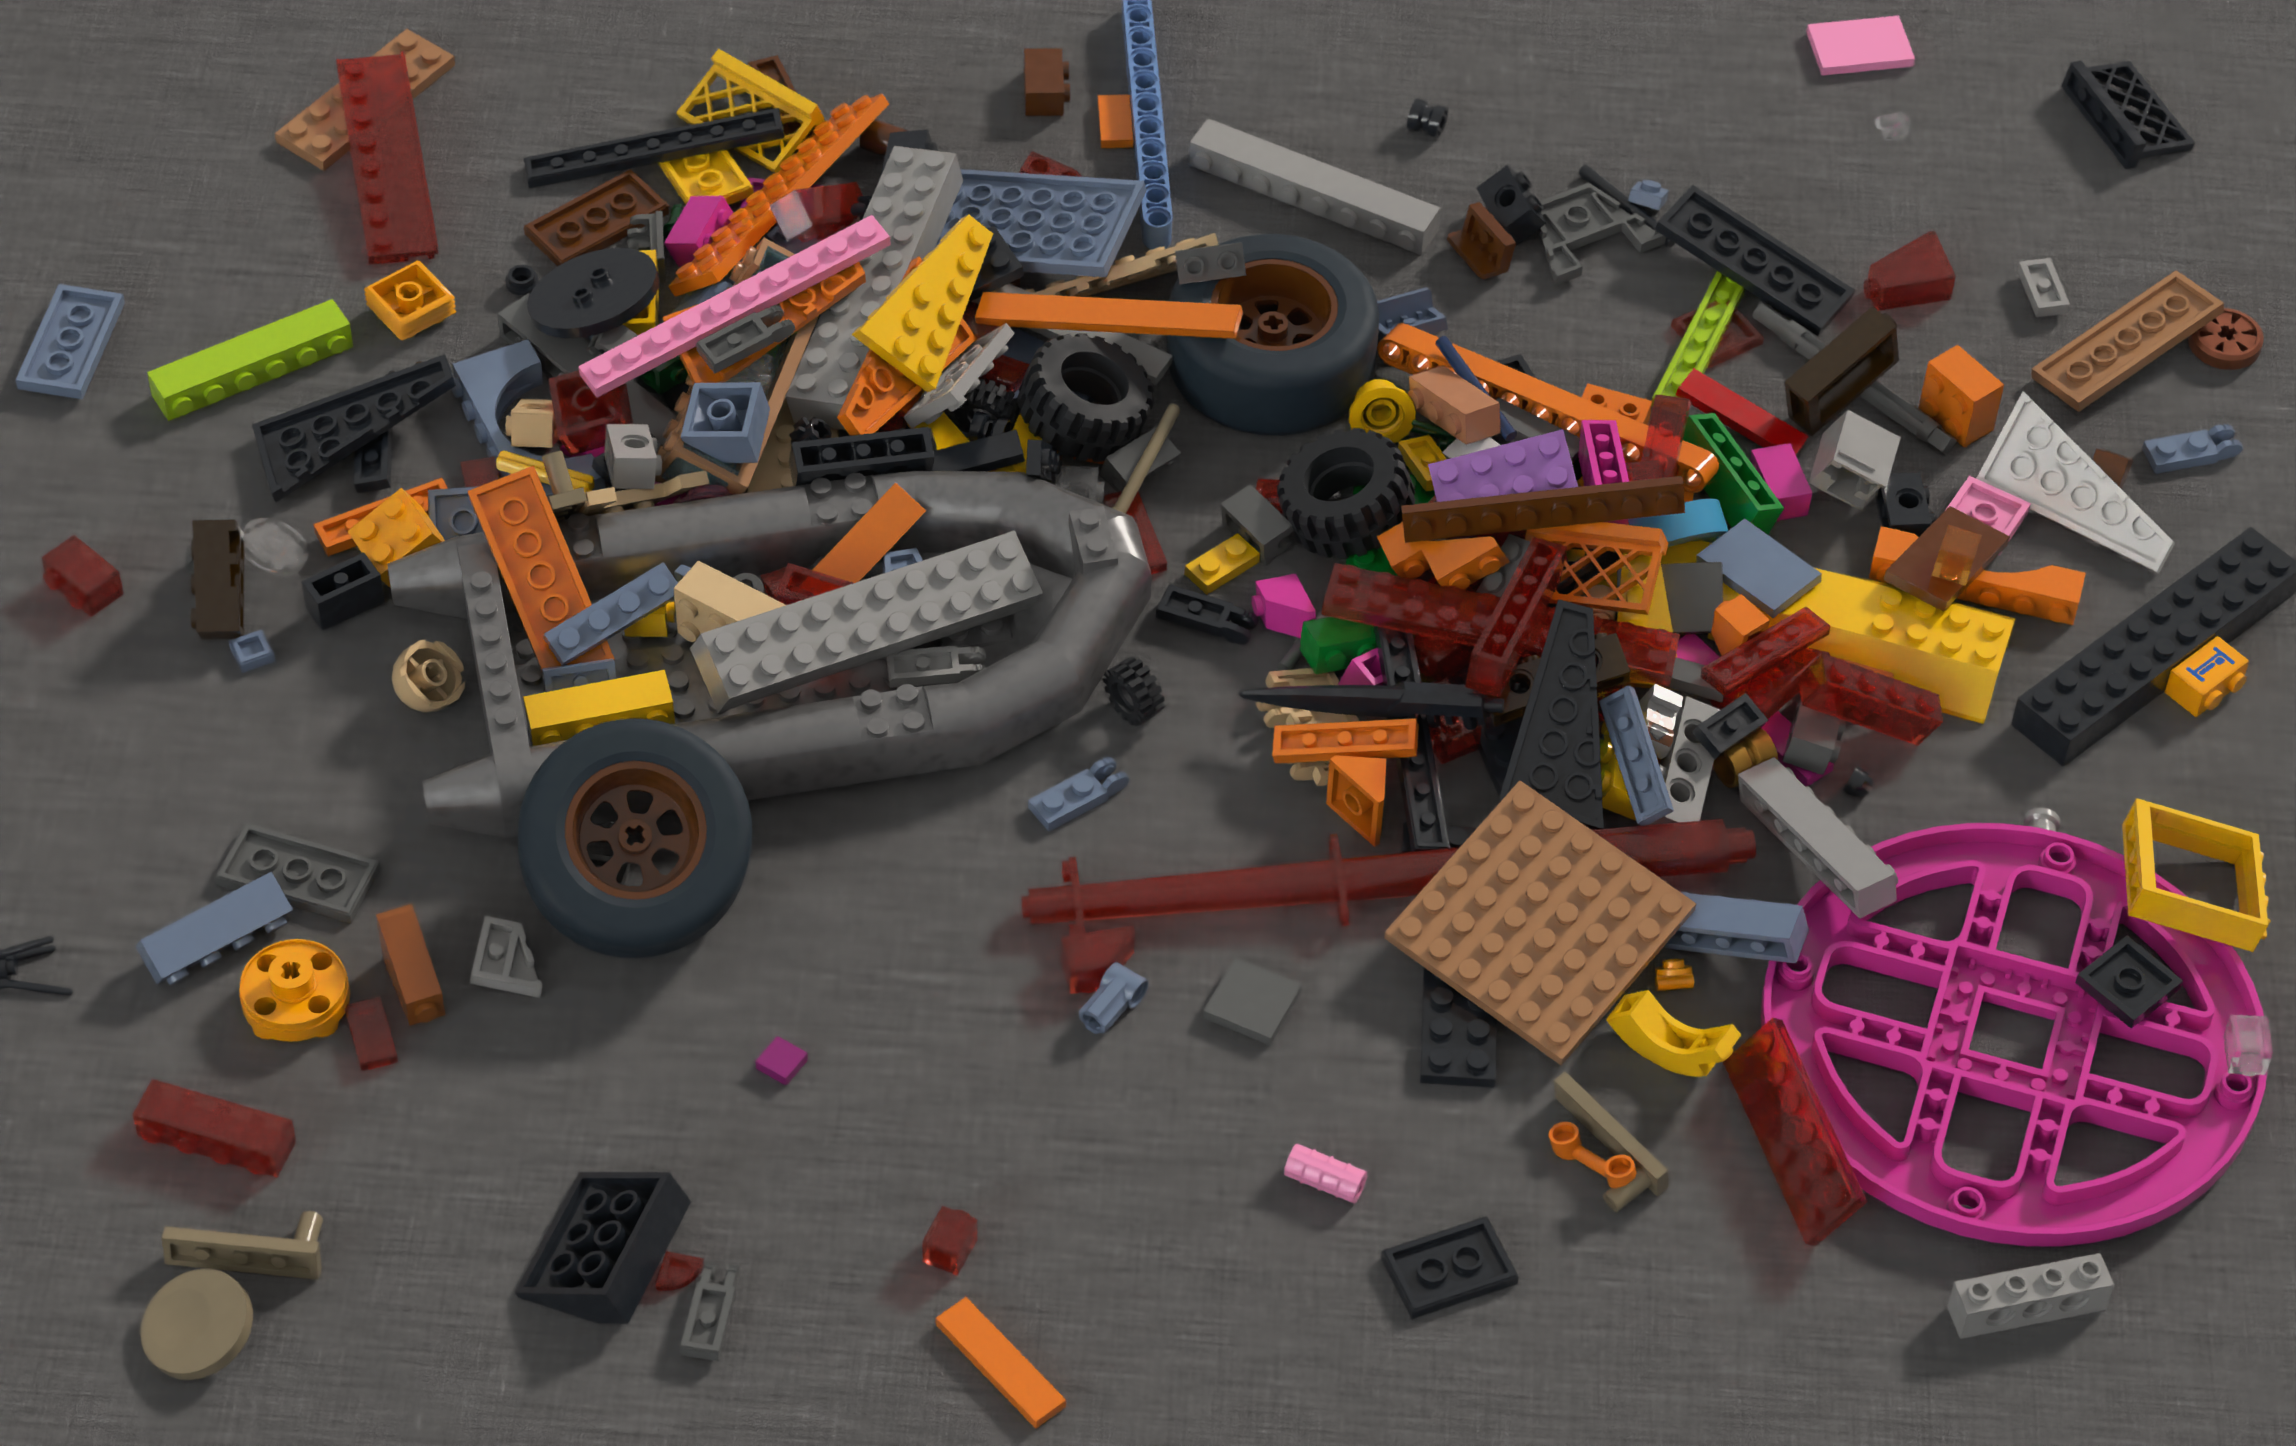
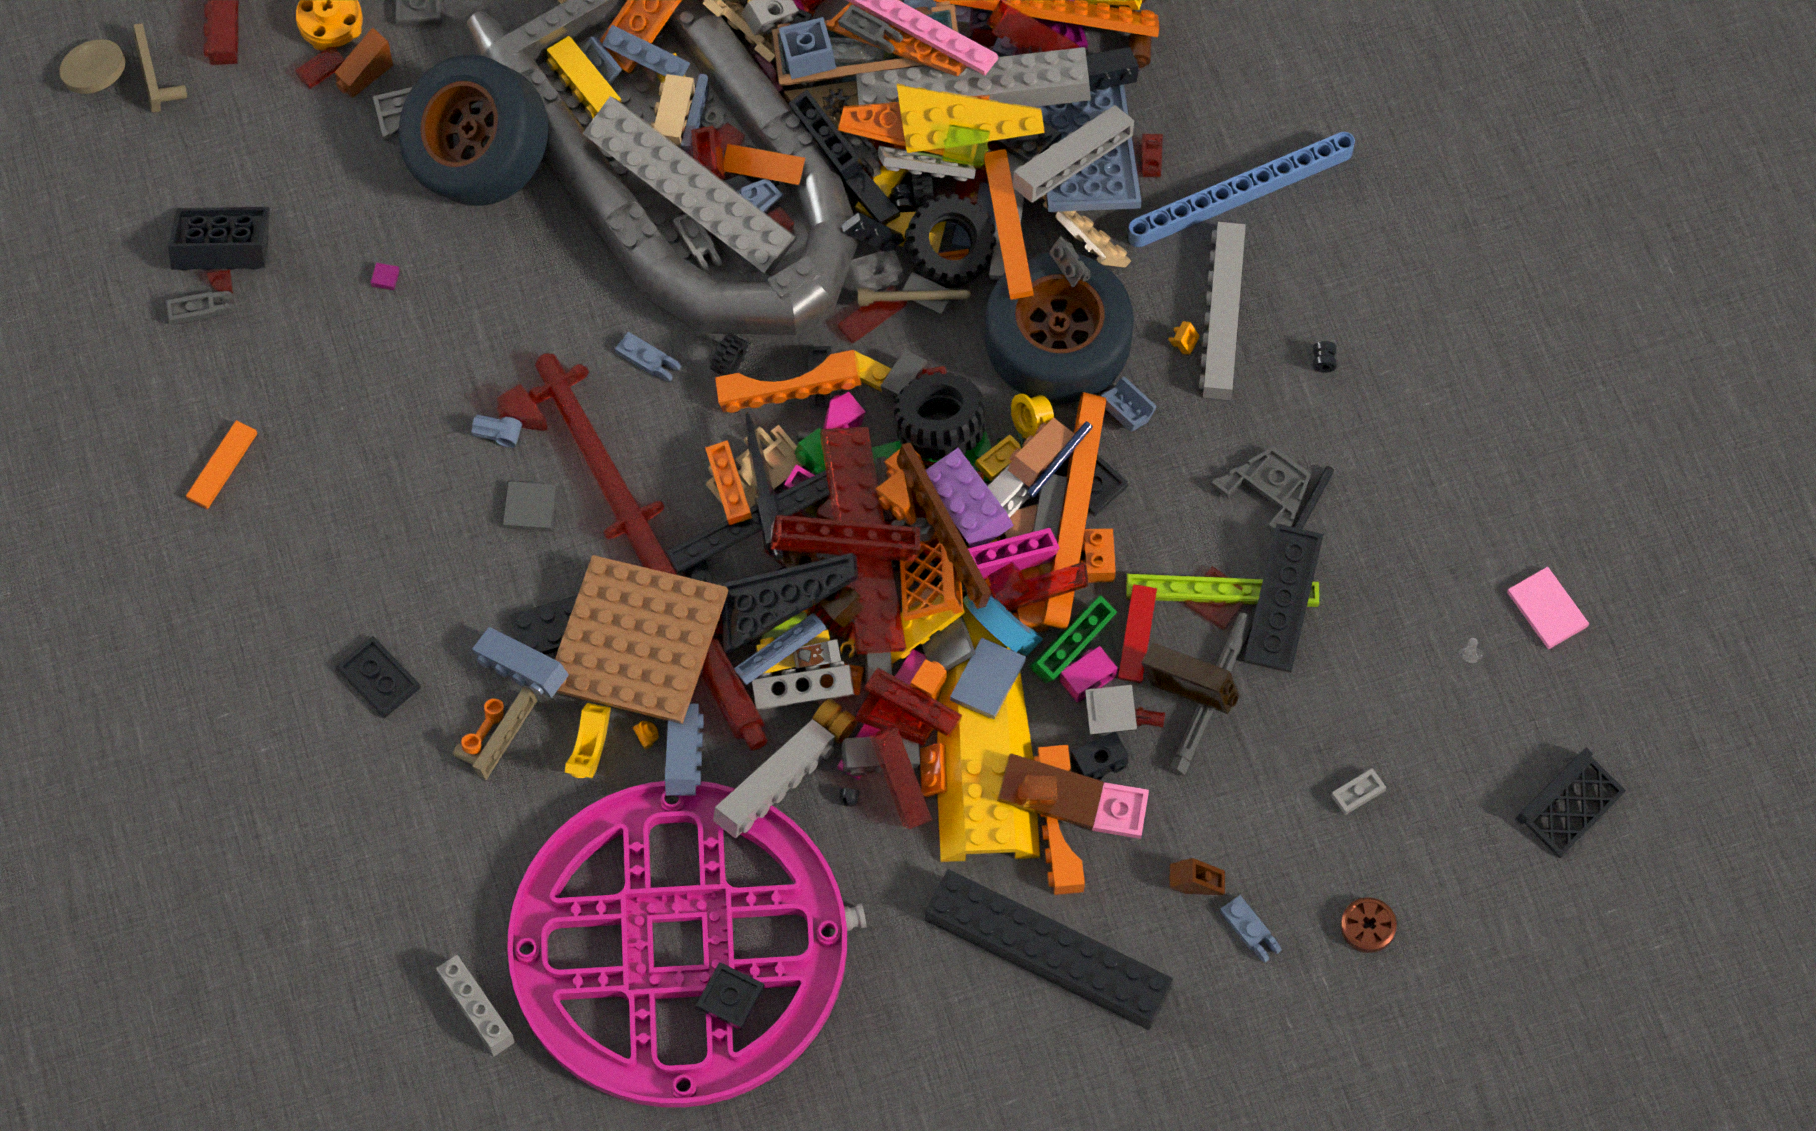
camera: 70 degrees right, 15 degrees up
(950, 1240) = (290, 407): clear red brick -> none
(965, 318) = (965, 145): none -> clear neon green piece
(1035, 221) = (1073, 153): none -> light grey brick
(1045, 82) = (1240, 120): reddish brown brick -> none
(1115, 121) = (1228, 171): orange tile -> none
(1191, 698) = (835, 373): none -> orange arch
(1325, 1173) = (415, 587): bright pink axle -> none
(1334, 234) = (1185, 337): none -> light orange tile
(1358, 793) = (699, 511): orange slope -> none
(1483, 243) = (1216, 426): reddish brown bracket -> none
(1512, 204) = (1261, 432): black brick -> none
(1517, 1070) = (519, 662): none -> sand blue brick
(1648, 194) = (1321, 515): sand blue plate -> none
(1730, 726) = (836, 698): black plate -> none
(1794, 1132) = (542, 832): clear red plate -> none
(1911, 275) = (1326, 702): clear red slope -> none
(1961, 395) = (1212, 761): orange brick -> none
(2066, 486) = (1165, 843): white wing -> none
(2127, 340) = (1326, 858): medium nougat plate -> none
(2202, 836) = (883, 1005): yellow window -> none
(2207, 677) = (1035, 988): light orange brick -> none
(2248, 1045) = (704, 1080): clear brick -> none

